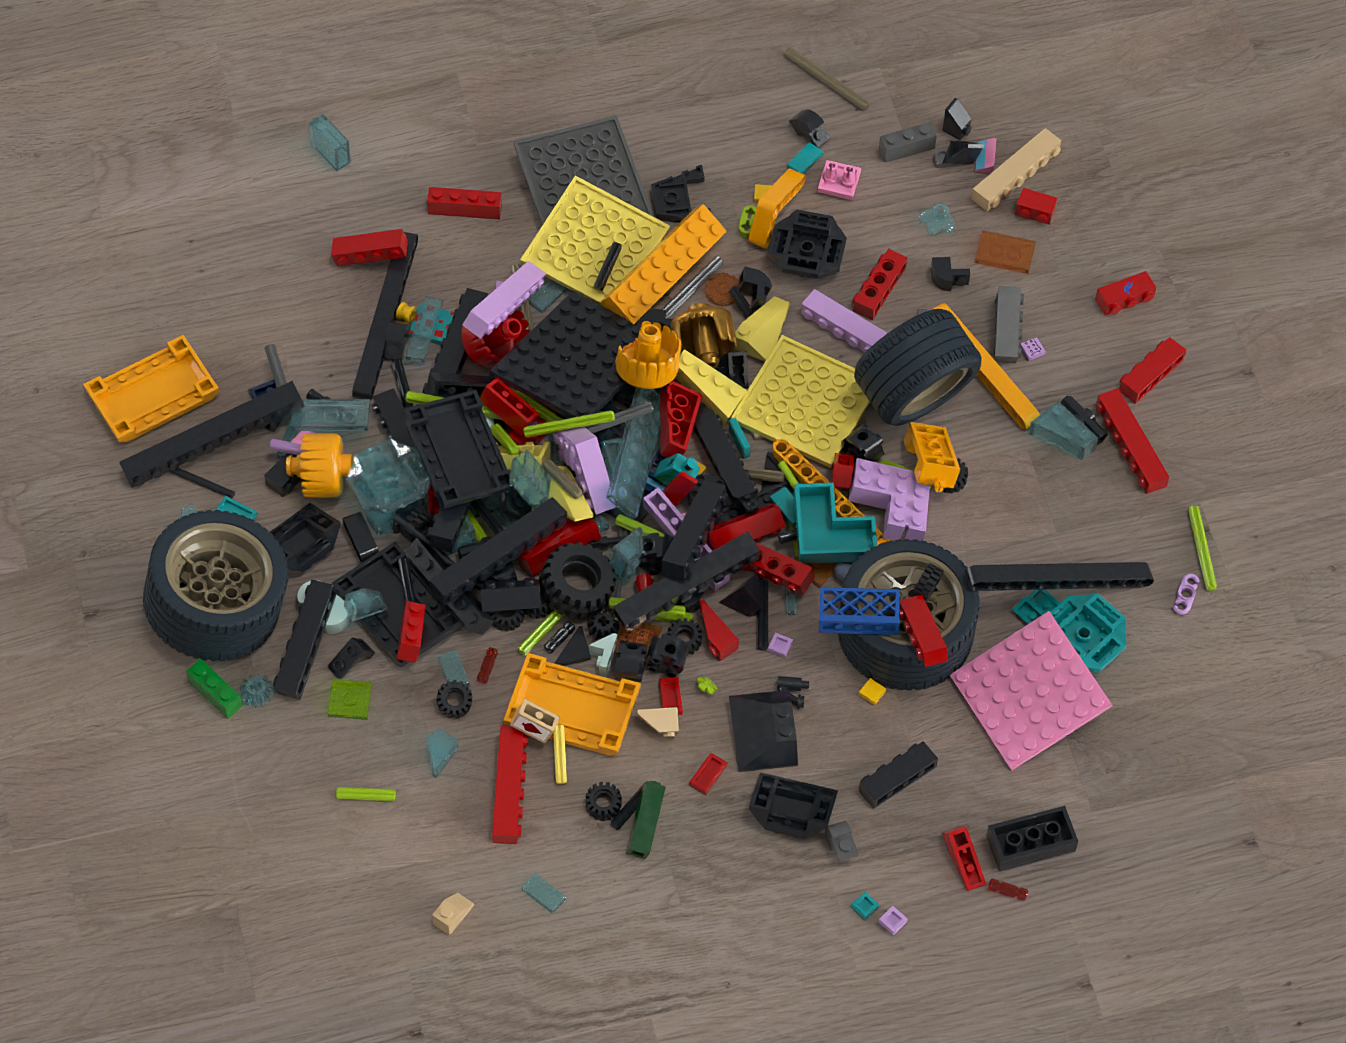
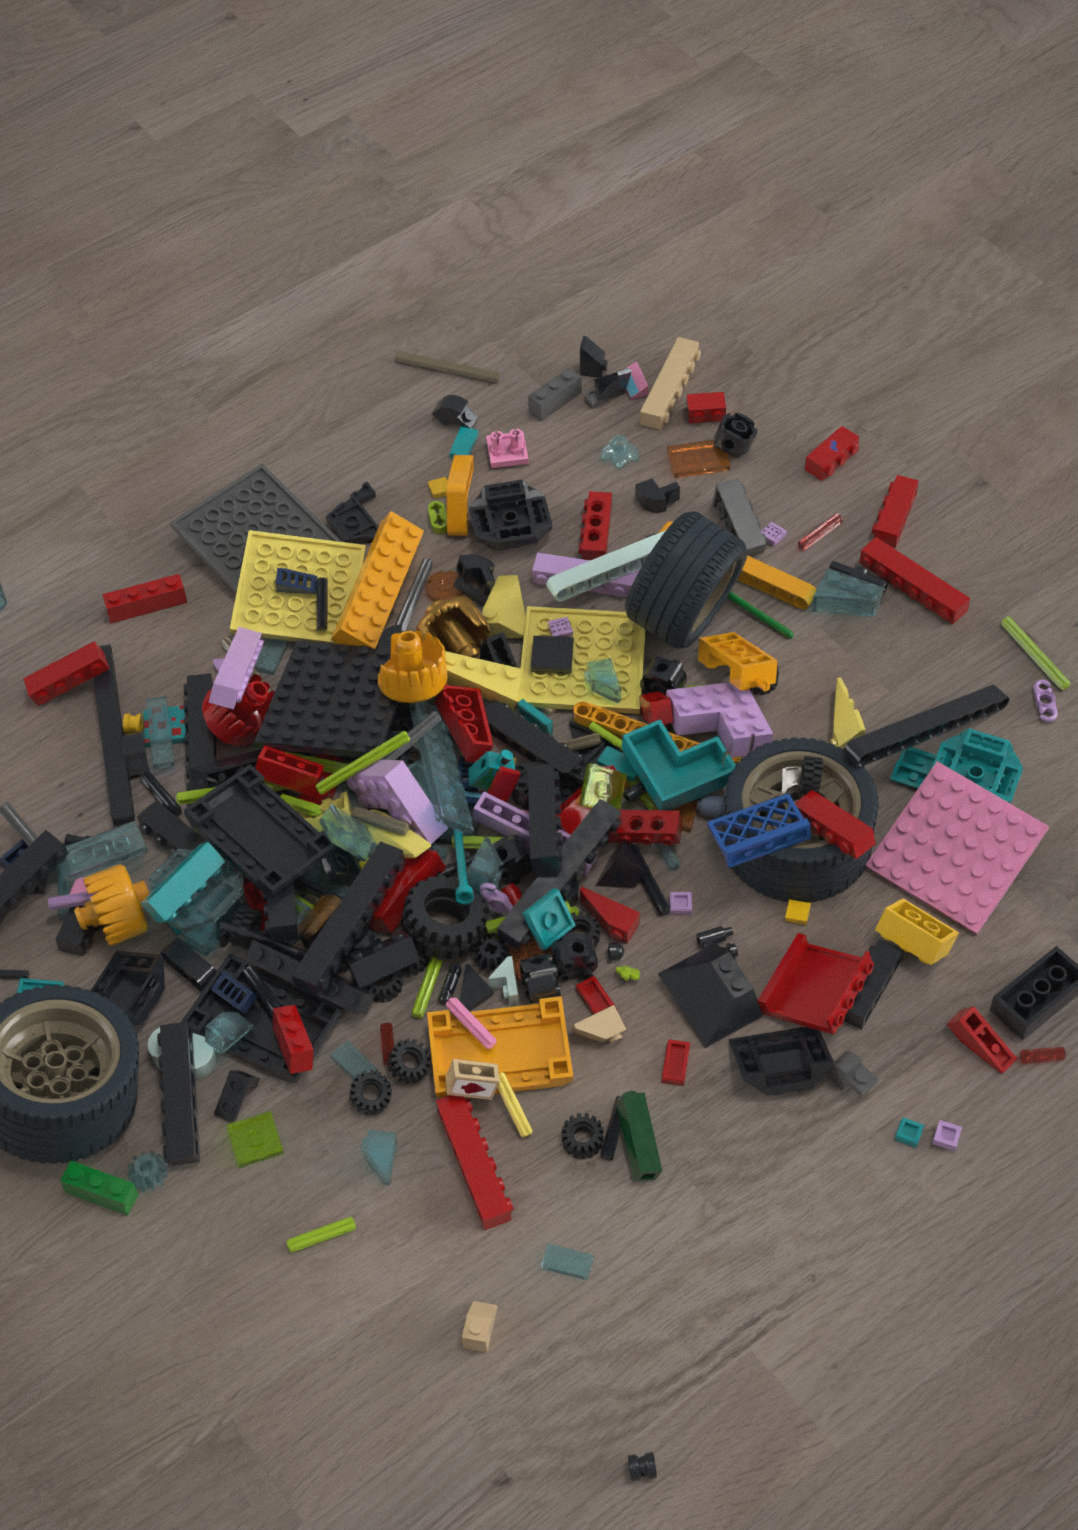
camera: 20 degrees left, 5 degrees down
(379, 469) = (182, 883): none -> teal brick
(391, 585) = (247, 1000): none -> dark blue slope
(476, 538) = (318, 914): none -> clear orange tile
(504, 678) = (405, 1072): none -> black tyre
(558, 675) = (471, 1023): none -> bright pink axle
(584, 226) = (289, 587): none -> dark blue slope
(600, 566) = (464, 892): none -> teal piece
(625, 581) = (490, 896): none -> lavender piece
(659, 615) = (549, 919): none -> teal tile
(705, 664) = (615, 951): none -> black hinge
(761, 522) = (603, 784): none -> clear neon green tile
(780, 387) = (552, 654): none -> black tile
(799, 366) = (560, 627): none -> lavender tile
(811, 426) = (603, 679): none -> clear light blue slope
(849, 756) = (814, 985): none -> red panel
(863, 326) = (601, 570): none -> light aqua beam
(957, 747) = (916, 931): none -> yellow brick
(980, 419) = (760, 615): none -> green piece
(996, 548) = (846, 721): none -> light yellow wedge
(1045, 243) = (735, 434): none -> black brick
(1075, 363) = (820, 531): none -> clear red axle

